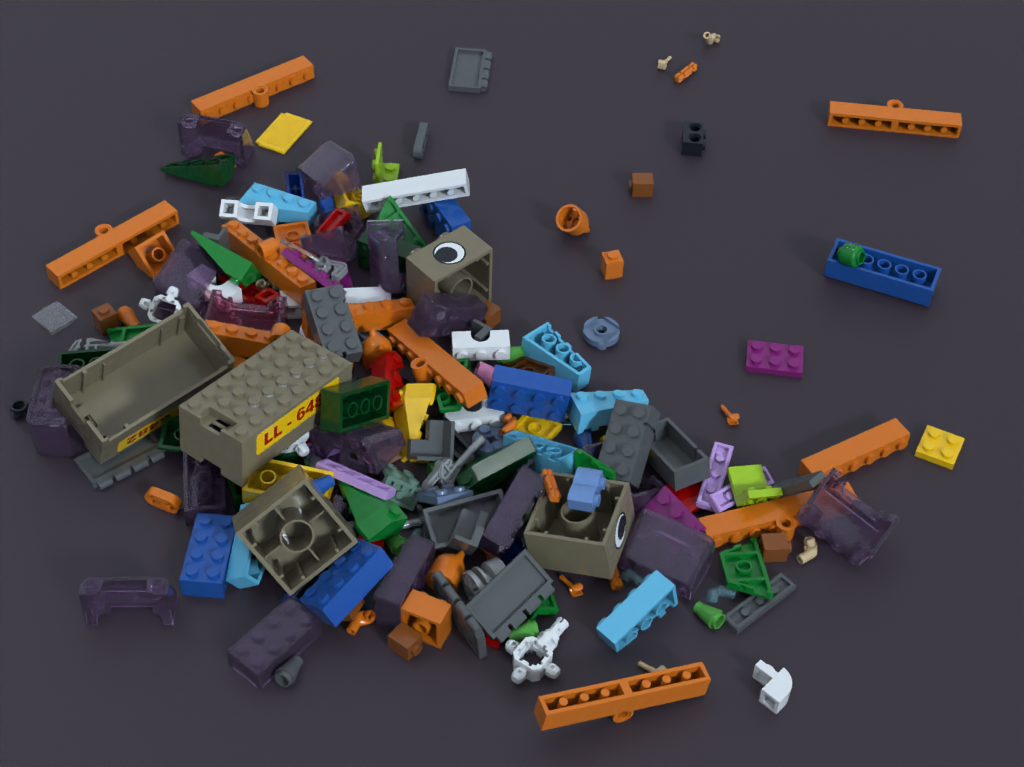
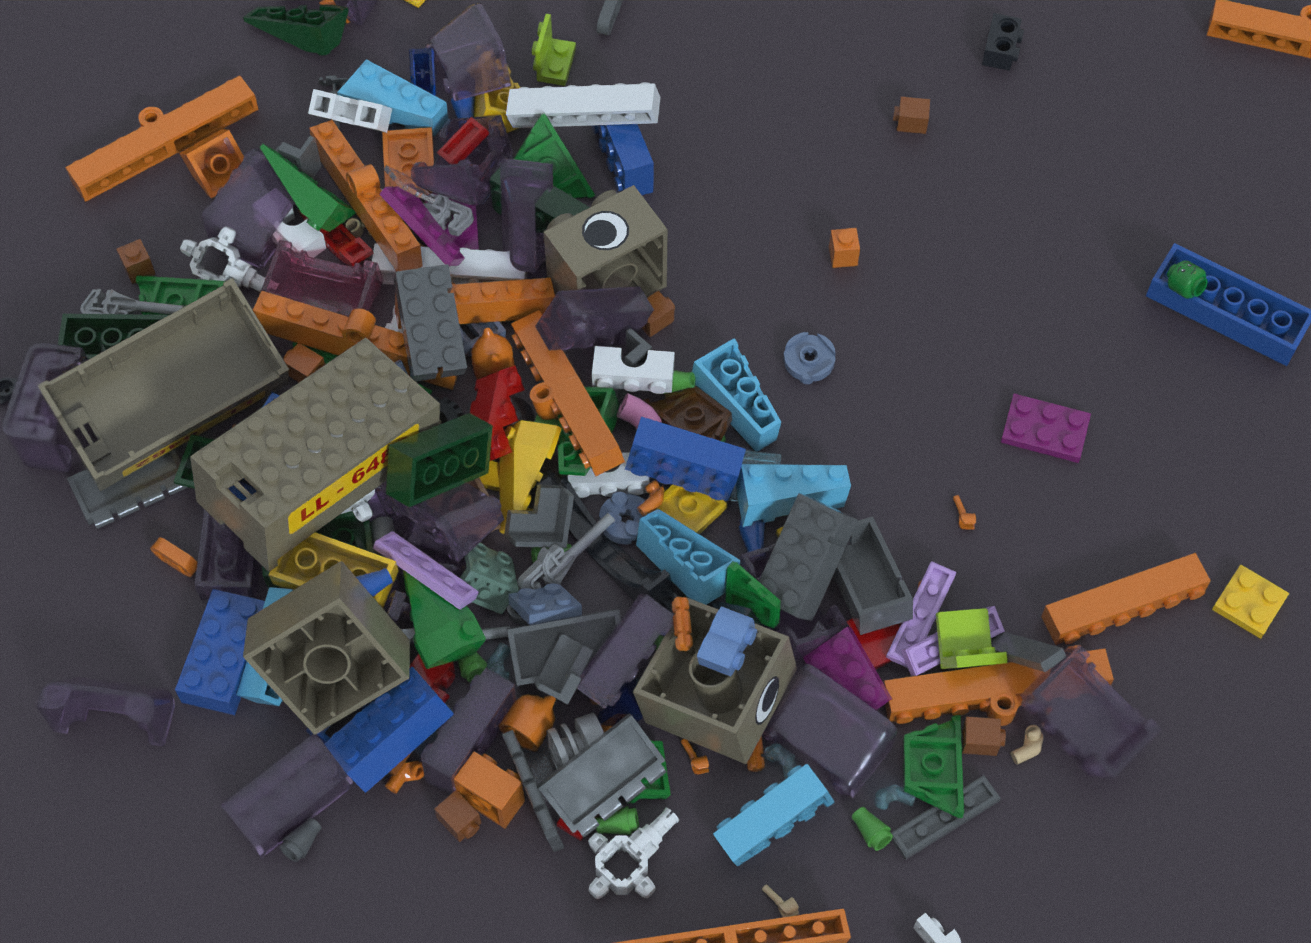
camera: 10 degrees right, 15 degrees up
(54, 317) = (71, 247): clear piece -> none
(127, 316) = (167, 261): orange cone -> none
(490, 469) = (616, 566): dark green wedge -> none
(572, 220) = (800, 169): orange piece -> none

